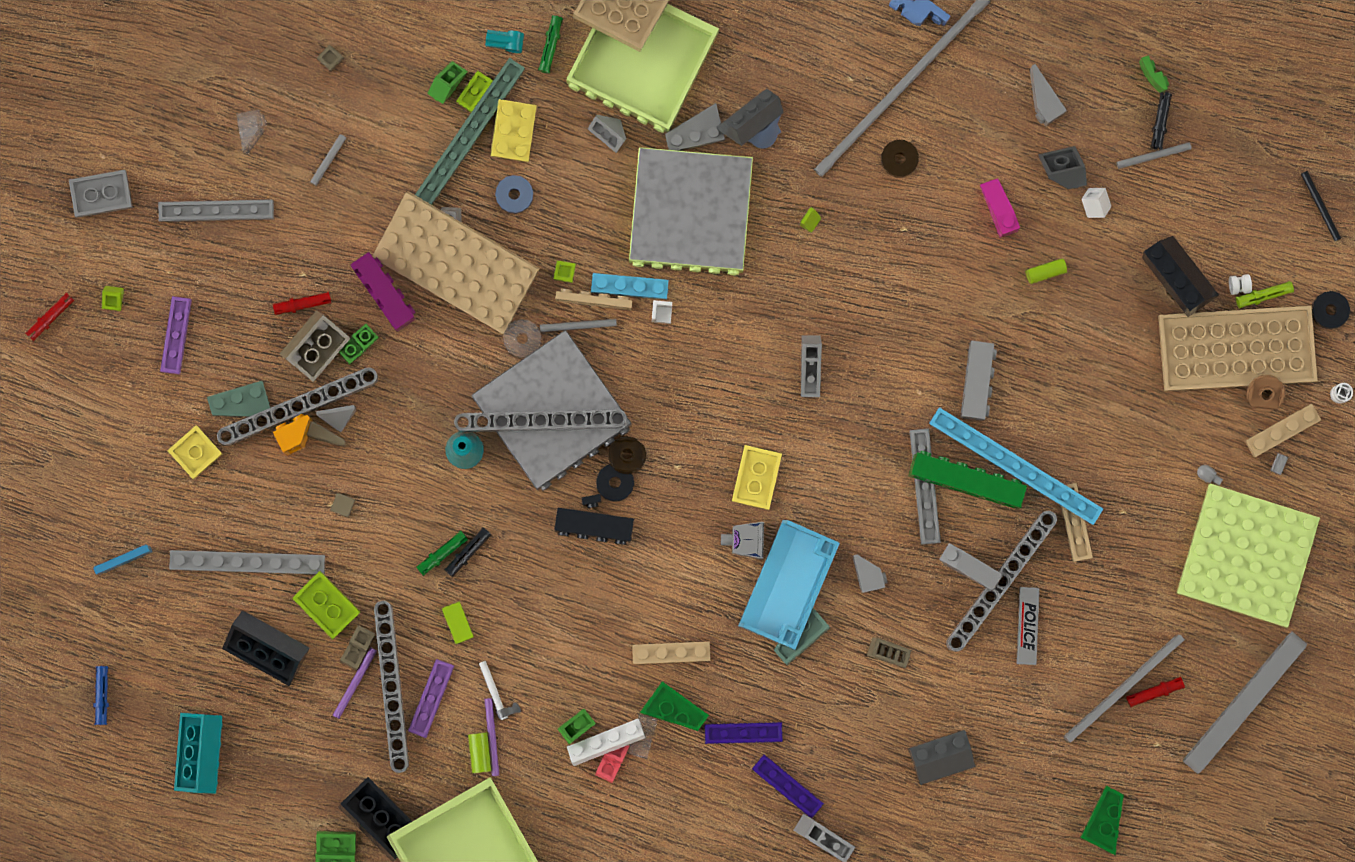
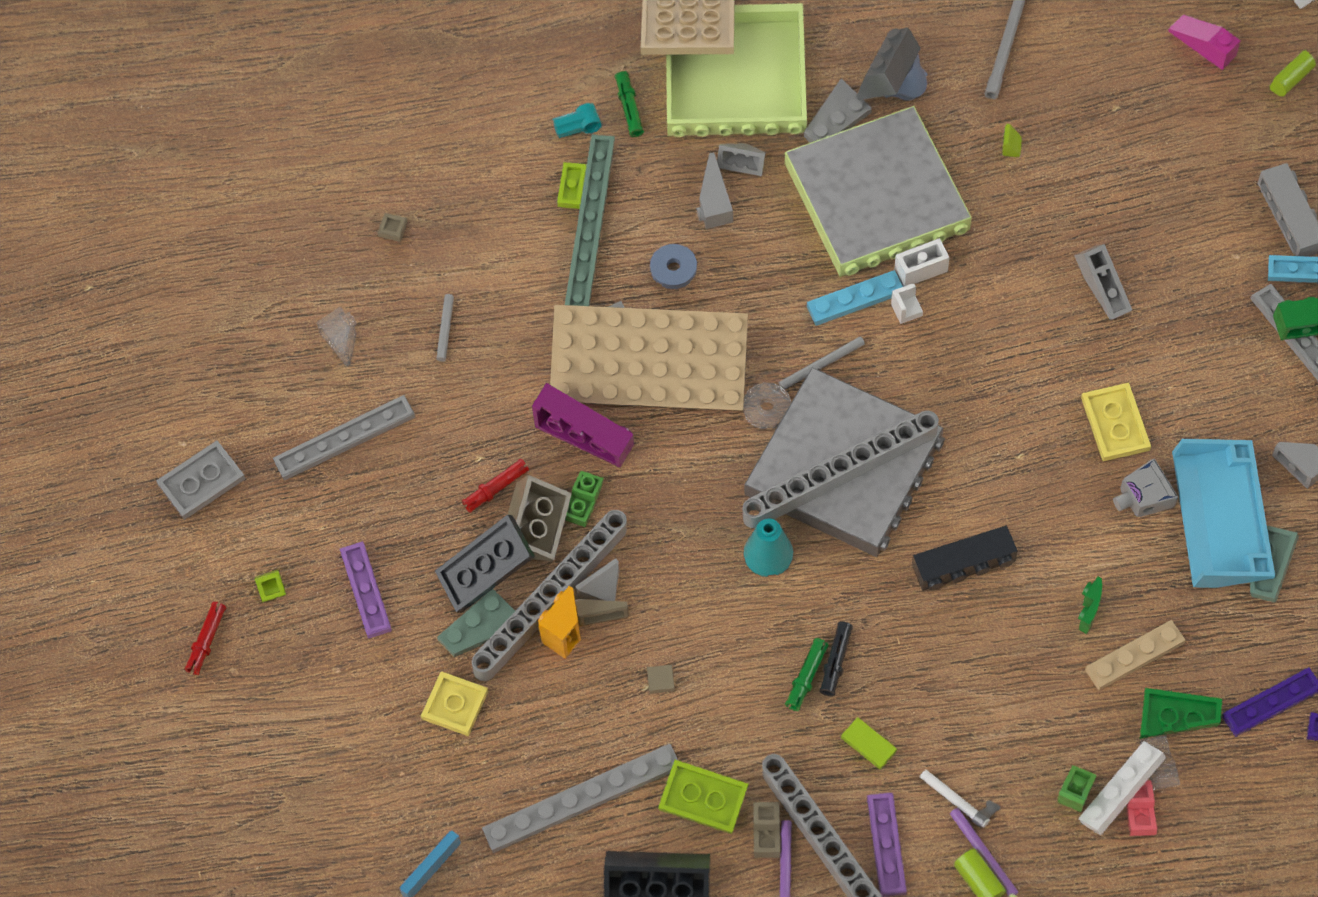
camera: 15 degrees left, 20 degrees down
(261, 364) = (484, 563): none -> plate
(447, 82) = (536, 190): bright green slope -> none
(513, 130) = (636, 202): light yellow plate -> none
(564, 271) = (774, 315): lime plate -> none
(570, 154) = (714, 201): none -> light grey slope
(586, 298) = (829, 326): tan plate -> none
(591, 501) = (946, 533): black plate -> none
(610, 493) = (960, 491): black tile -> none
(623, 465) = (957, 478): dark brown tile -> none
(665, 598) = (1091, 602): none -> green slope
(688, 286) = (922, 262): none -> white brick
(902, 147) = (1068, 31): dark brown tile -> none

